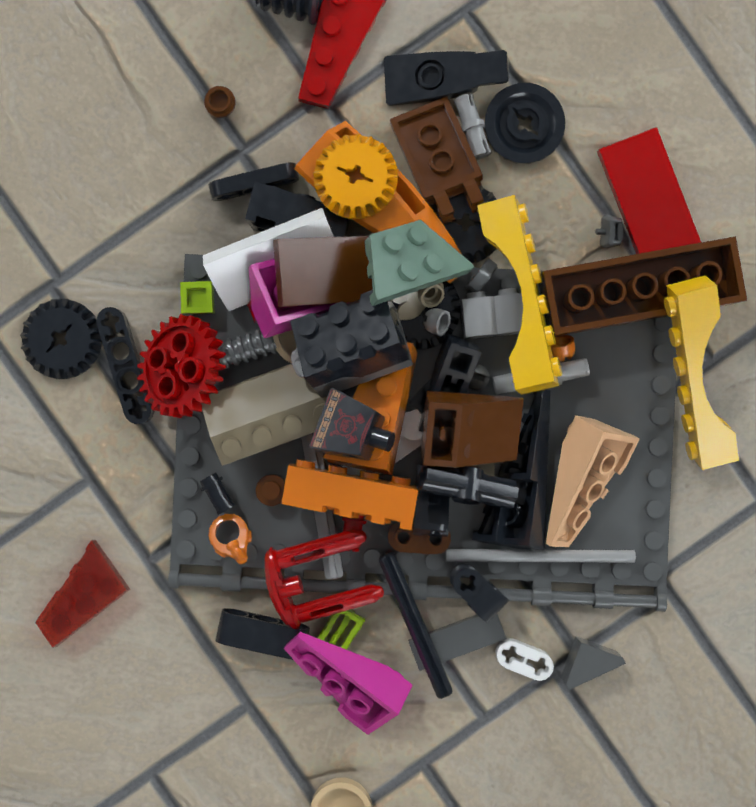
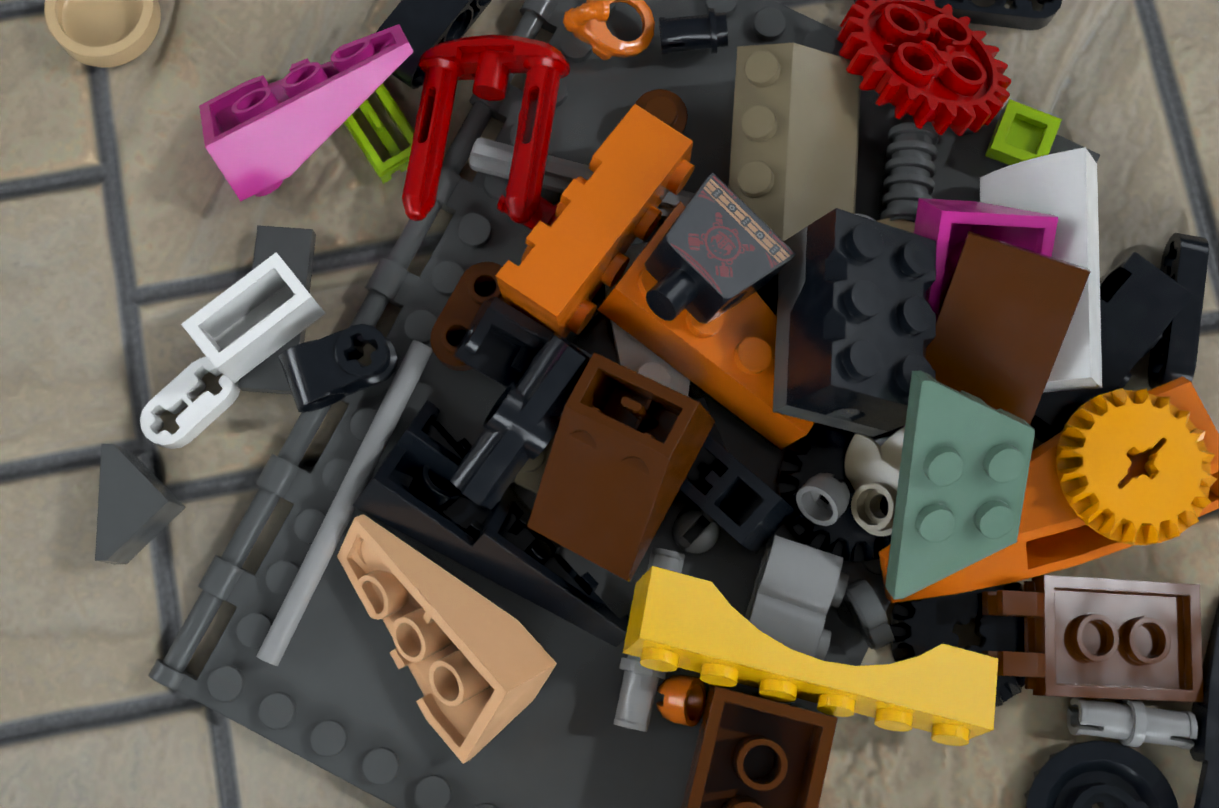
camera: 115 degrees right, 10 degrees down
(415, 625) = (334, 246): black axle -> none
(473, 645) = (253, 318): none -> white brick

